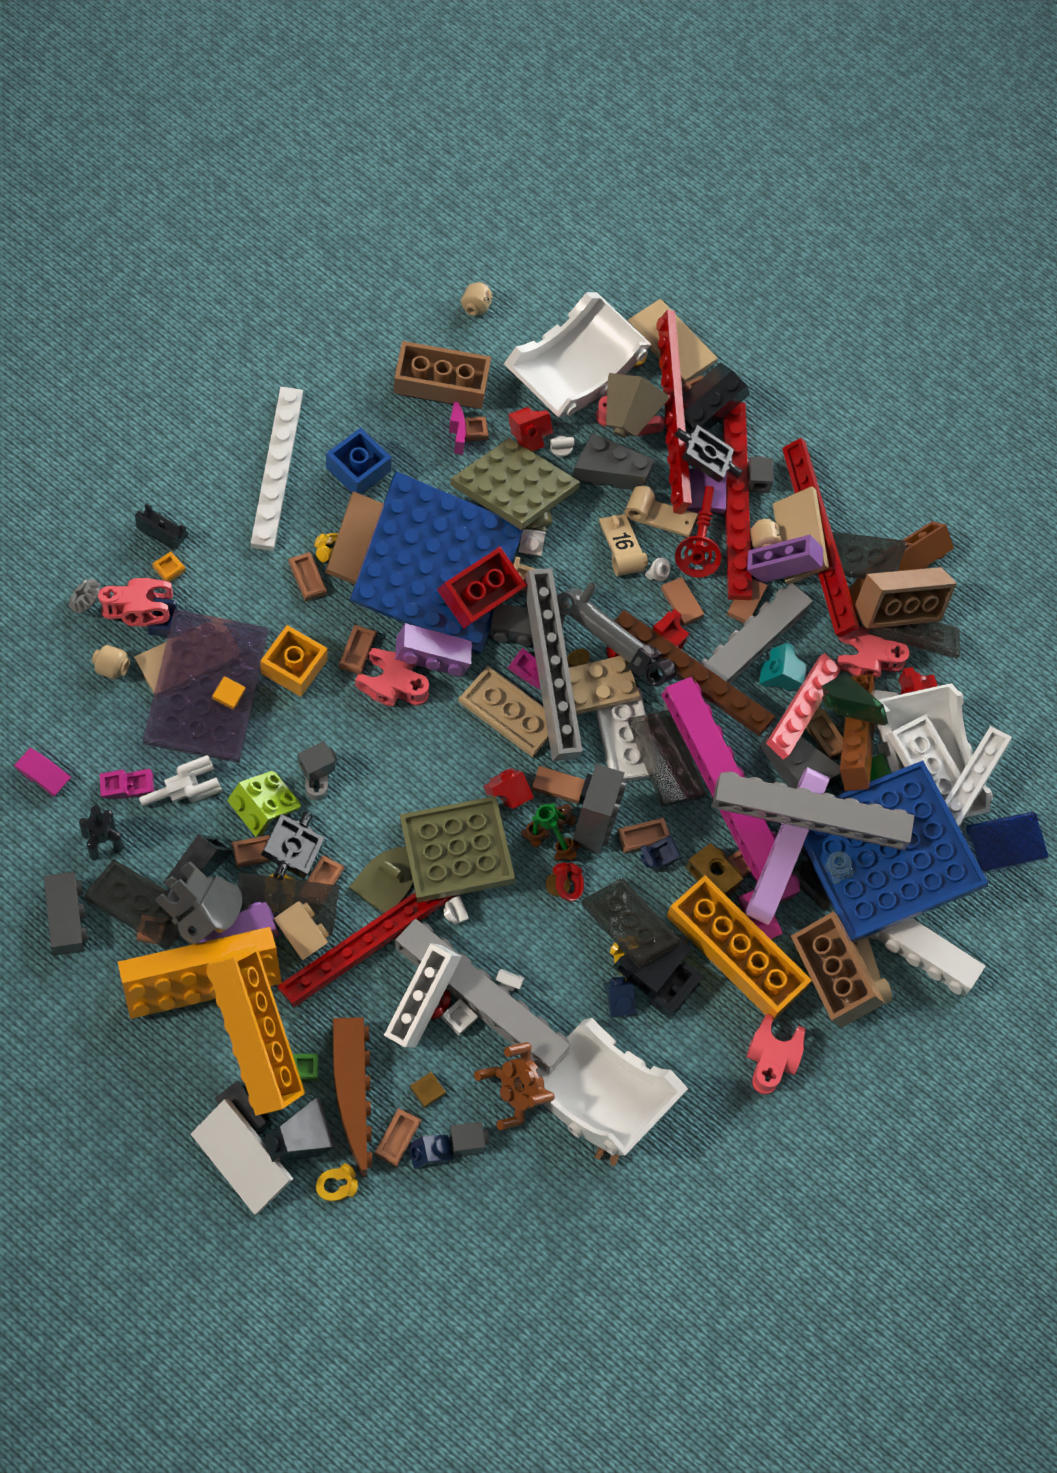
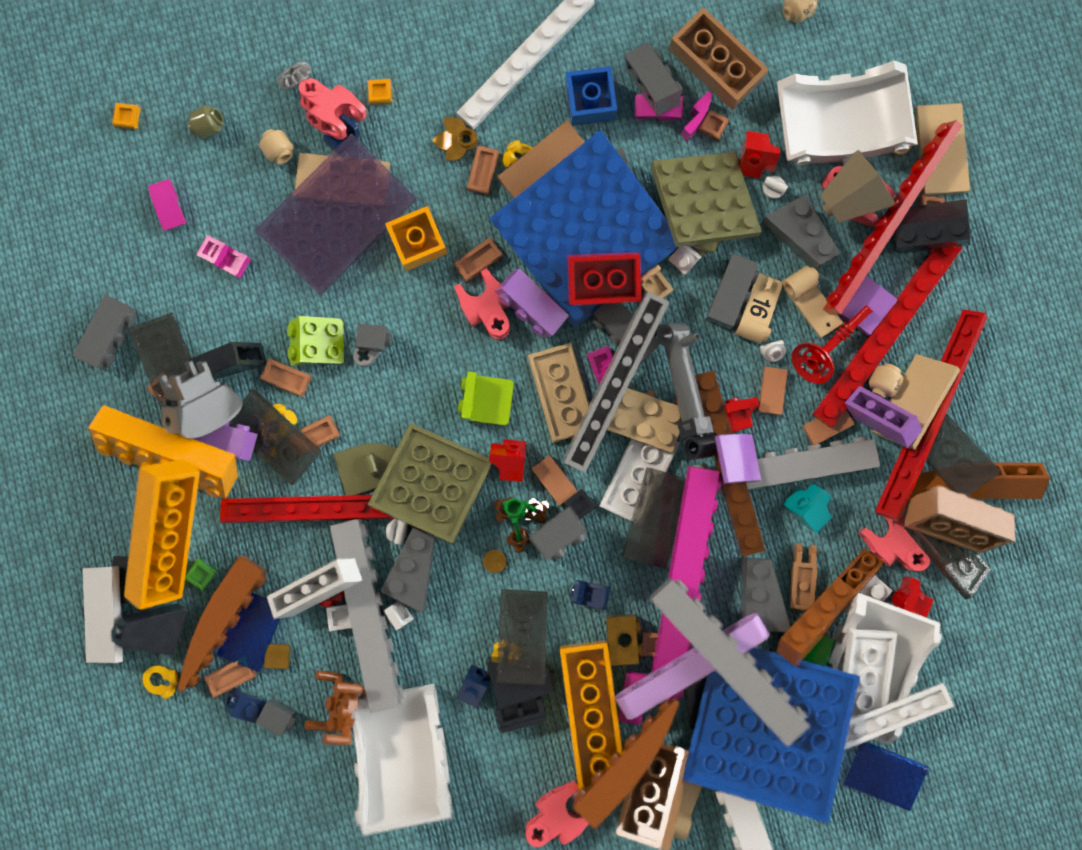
camera: 45 degrees right, 20 degrees up
(29, 680) = (205, 122): none -> olive head
(99, 829) = (169, 285): black plant -> none
(160, 528) = (396, 52): black hinge -> none
(186, 784) = (264, 288): white plant -> none
(228, 693) = (345, 233): light orange tile -> none
(262, 567) = (452, 139): none -> pearl gold plate
(292, 846) = (307, 394): plate -> none
(302, 930) = (266, 468): tan brick -> none
(391, 1085) = (251, 635): none -> clear blue piece
(400, 419) = (653, 79): none -> dark grey brick
(421, 438) = (644, 110): none -> dark pink slope
(450, 755) = (486, 399): none -> lime bracket
(495, 934) = (412, 570): none -> dark grey wedge
(561, 871) = (503, 554): red piece -> none
(578, 657) = (649, 384): pearl gold piece -> none
(591, 544) = (732, 292): none -> dark grey brick
(642, 834) = (591, 568): nougat tile -> none
(697, 659) = (738, 458): none -> slope
(708, 453) = (889, 277): black plate -> none
(760, 474) = (925, 321): dark grey brick -> none
(798, 959) = (624, 769): none -> dark orange slope
(802, 707) = (799, 555): coral plate -> none
(842, 871) = (725, 722): clear light blue brick -> none
(852, 700) = (841, 582): clear green slope -> none

